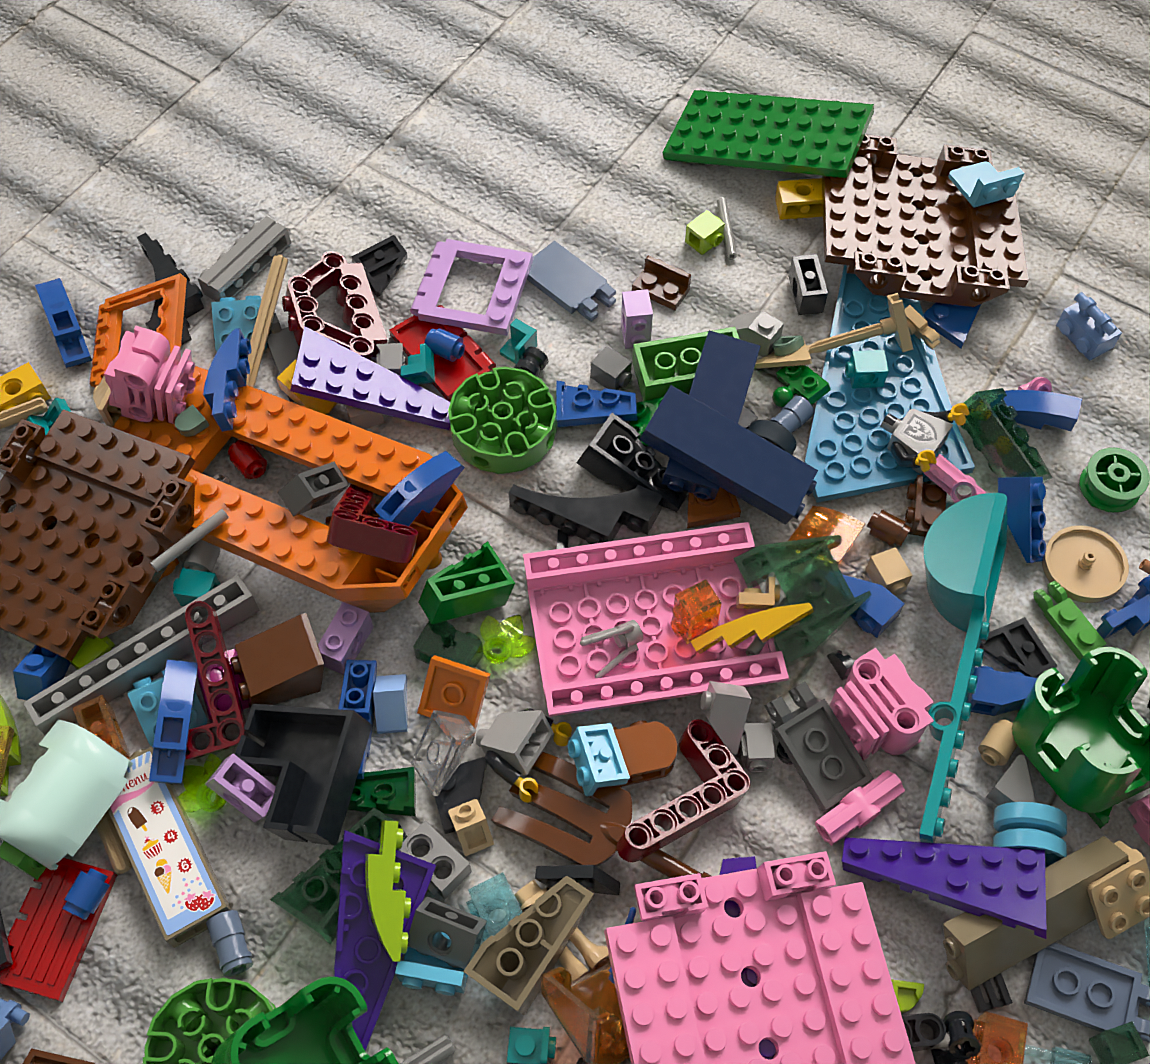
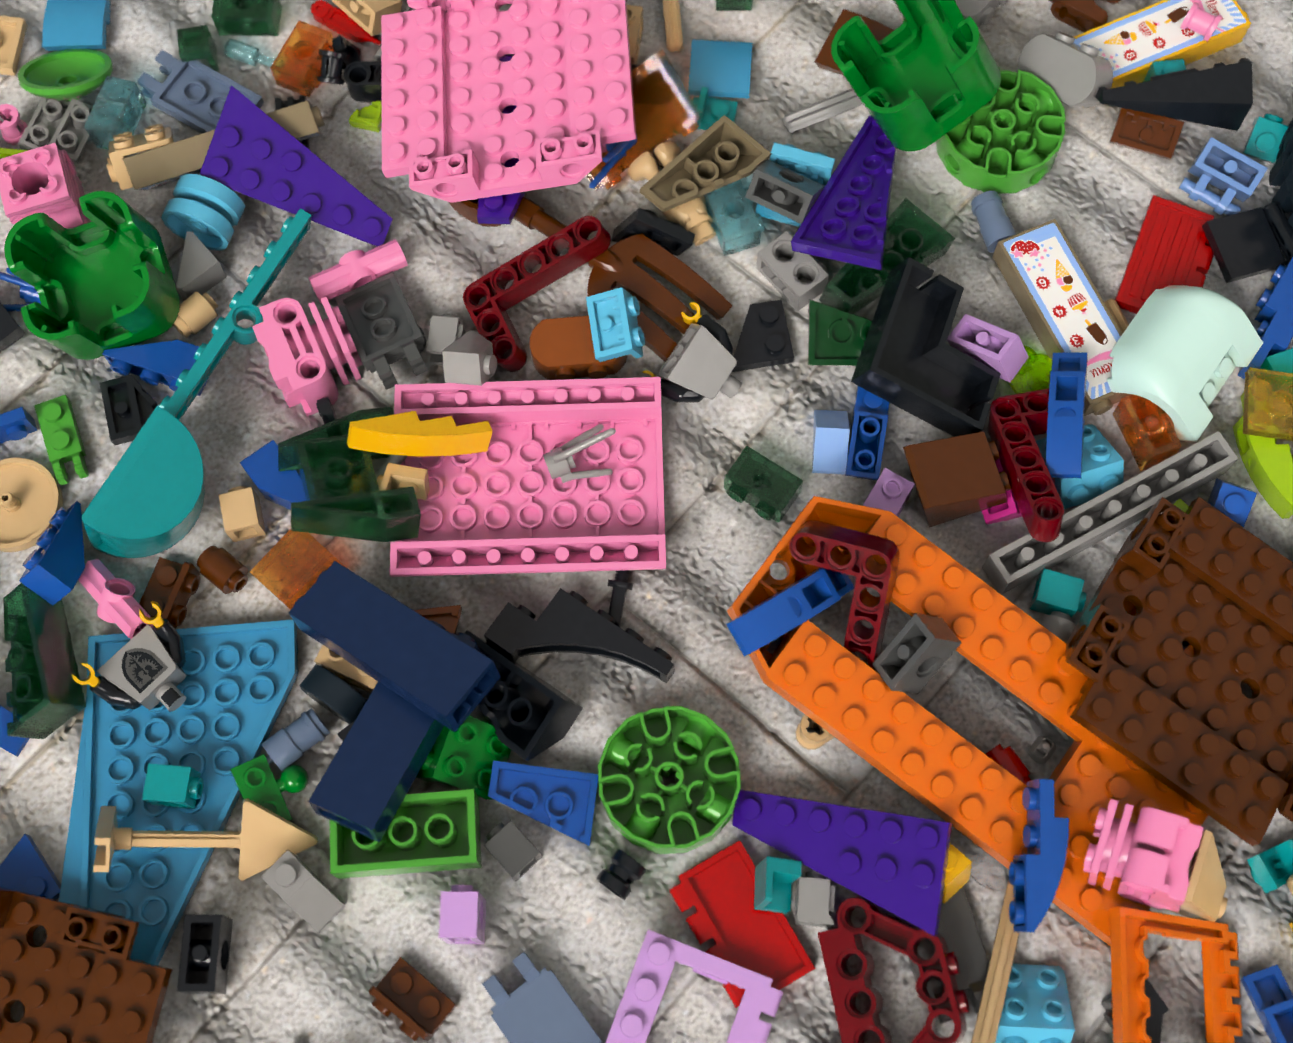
camera: 170 degrees left, 10 degrees up
(86, 893) = (1139, 271): blue brick -> none
(189, 540) = (1067, 609): light grey piece -> none
(190, 422) = (1083, 802): sand green tile -> none
(386, 904) = (840, 212): lime slope -> none
(442, 748) = (774, 364): clear slope -> none
(445, 344) = (736, 916): blue brick -> none
(453, 689) = (760, 427): orange plate -> none
(467, 587) = (735, 541): green wedge -> none
(471, 827) = (755, 296): tan bracket -> none
(507, 636) = (694, 499): clear neon green plate -> none
(521, 338) = (634, 917): teal panel -> none
(695, 611) = (480, 462): clear orange brick -> none
(787, 344) = (263, 853): sand green tile -> none
(920, 328) = (81, 850): tan plate -> none

